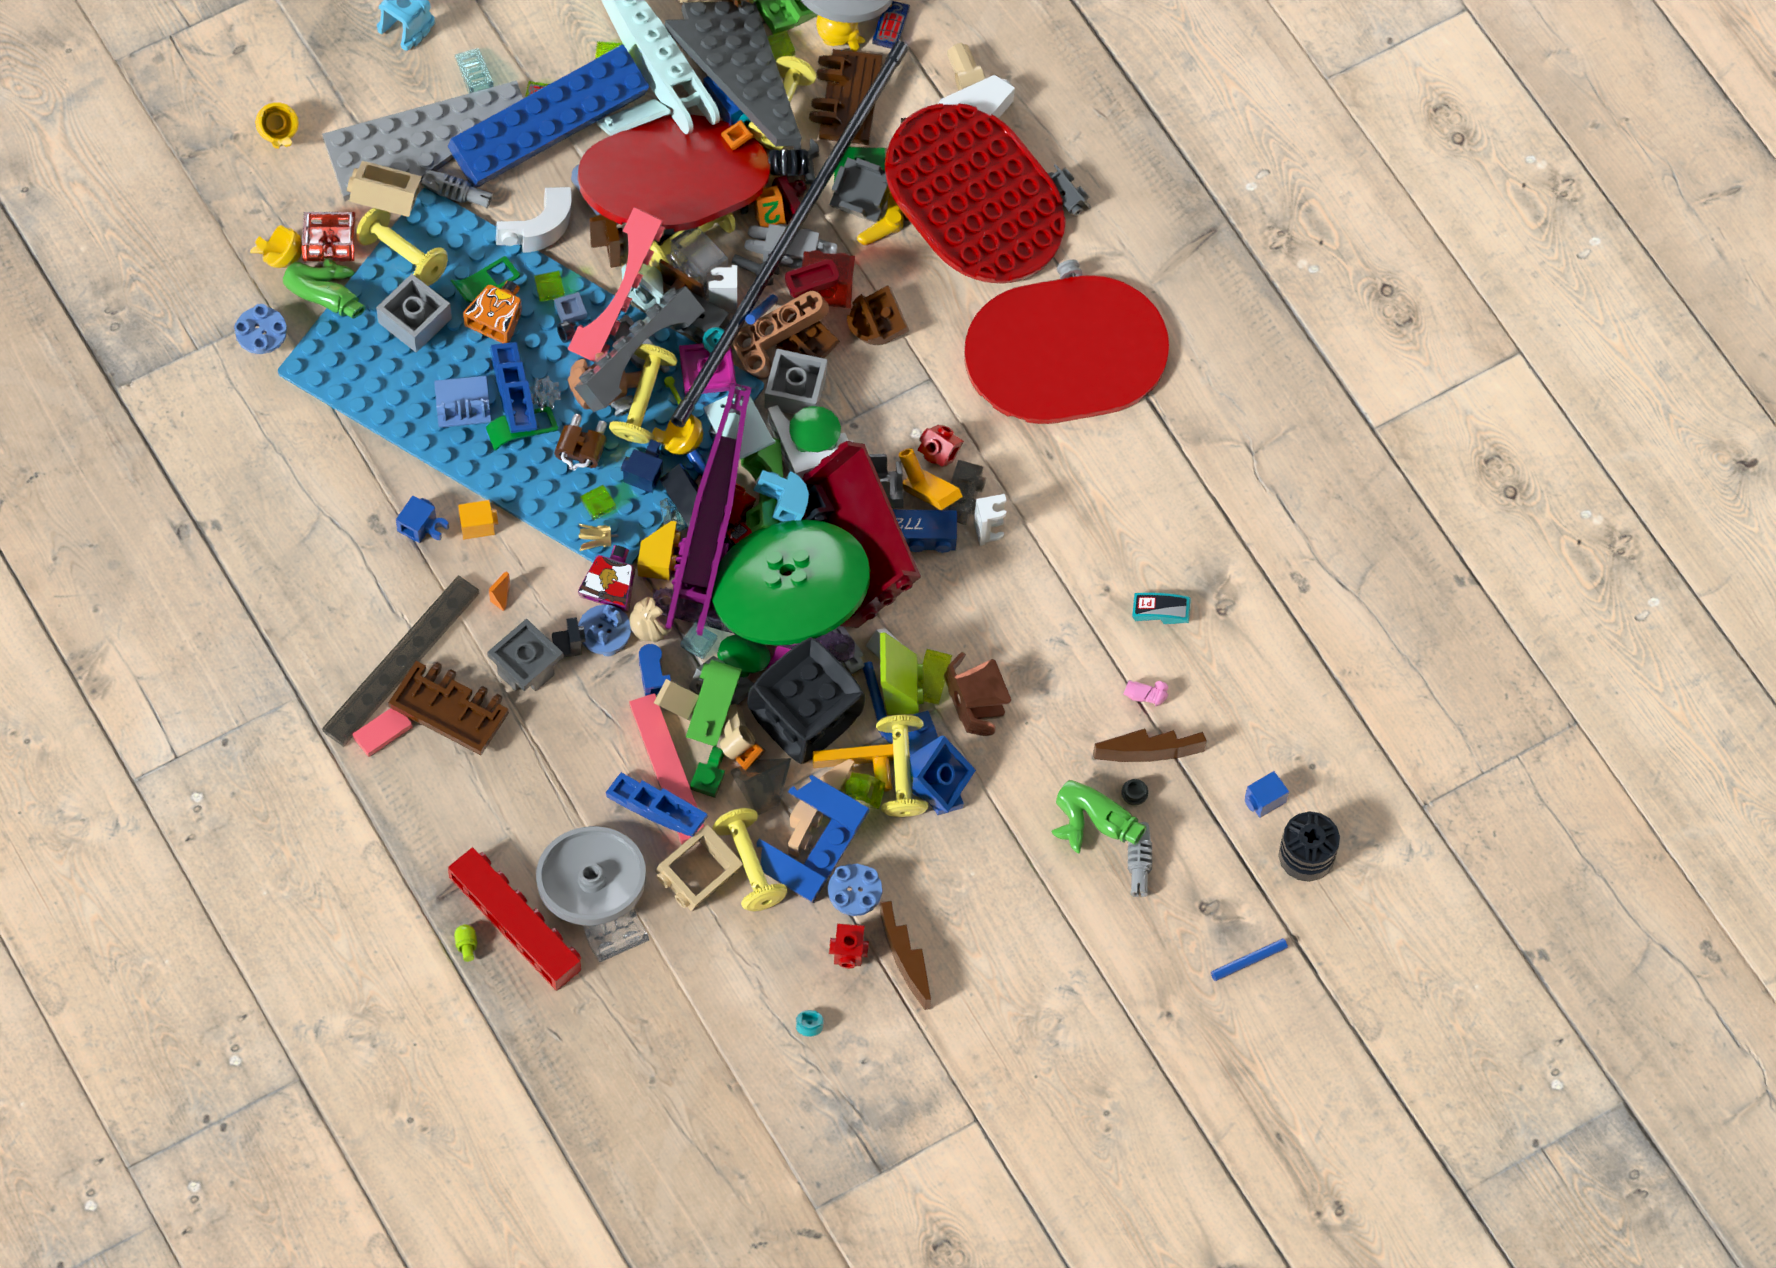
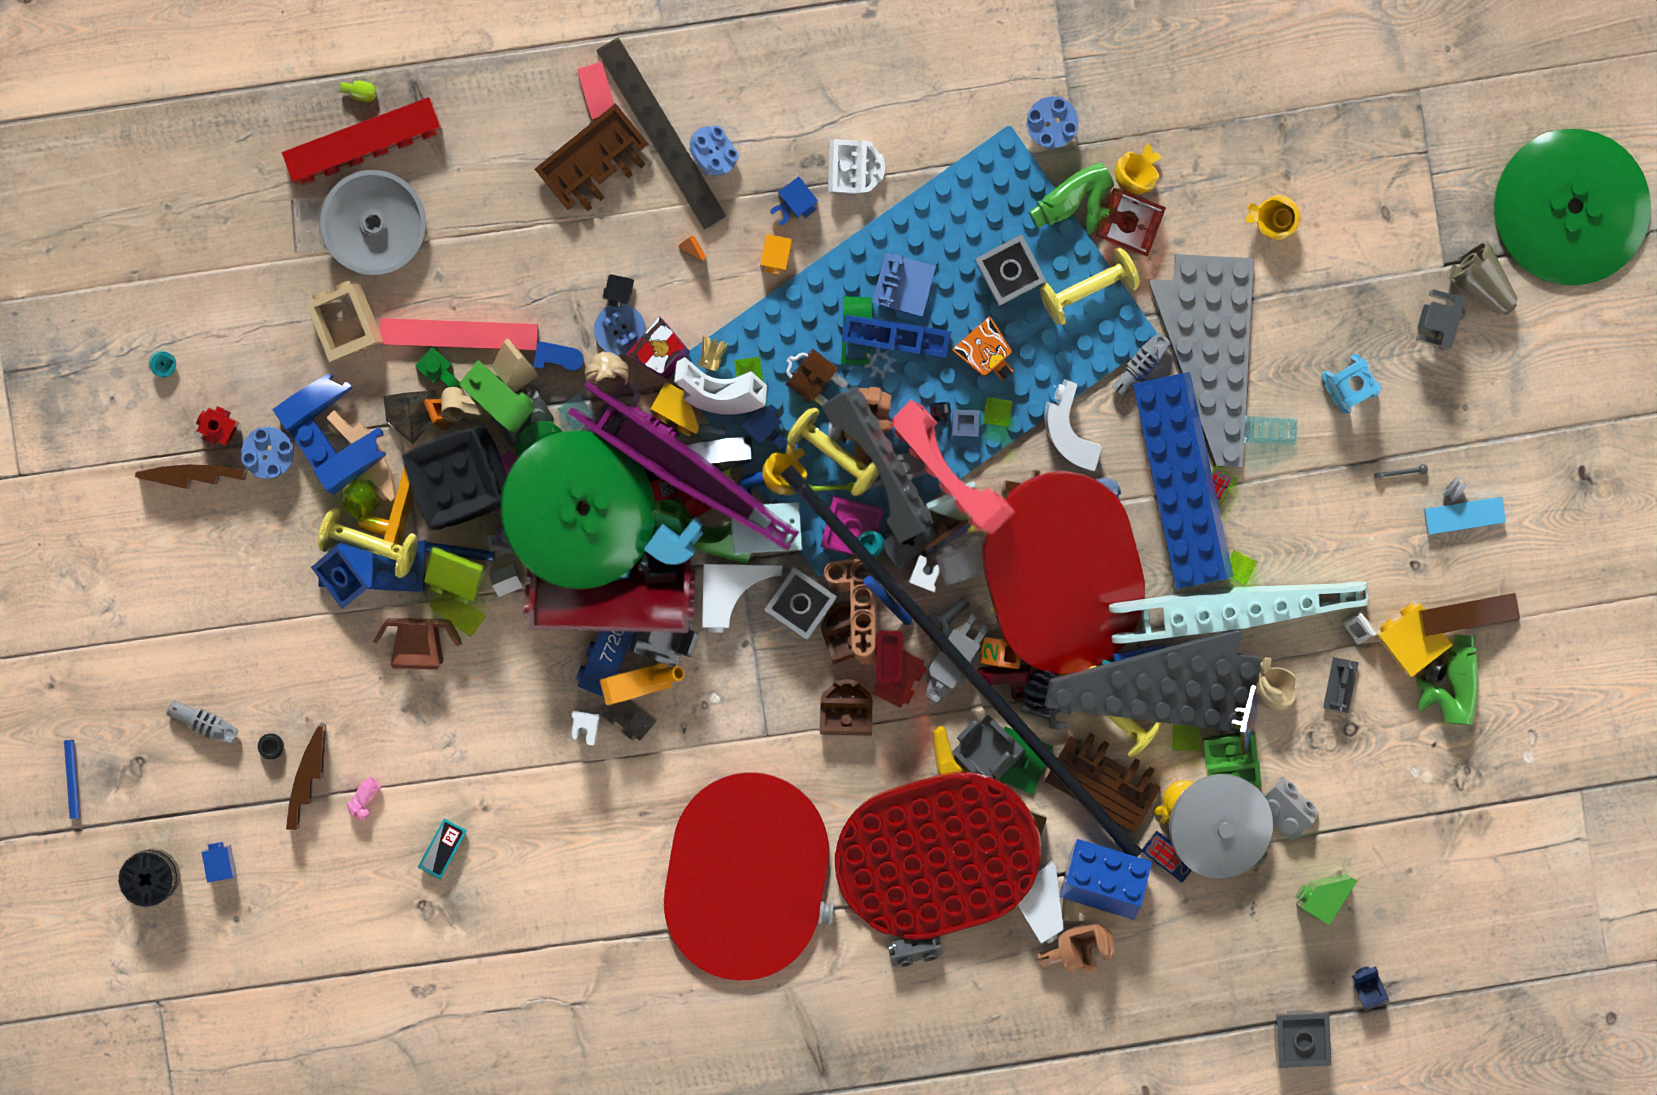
camera: 115 degrees right, 25 degrees up
(368, 482) = (854, 166): none -> white slope
(384, 188) = (1141, 281): tan window -> none
(400, 604) = (713, 150): none -> medium blue plate
(476, 283) = (1026, 348): green piece -> none
(525, 657) = (613, 244): dark grey panel -> none
(628, 507) = (720, 395): none -> white arch
(633, 117) = (1153, 564): light aqua container -> none
(656, 805) = (418, 307): blue slope -> none
(735, 824) = (332, 369): light yellow hose -> none
(737, 135) = (1090, 653): orange slope -> none
(815, 429) = (739, 599): green dish -> none
(934, 57) = (1105, 879): none -> blue brick
(939, 445) = (684, 712): red brick -> none
(1004, 66) = (1077, 945): none -> nougat piece
(1105, 814) = (254, 707): bright green piece -> none

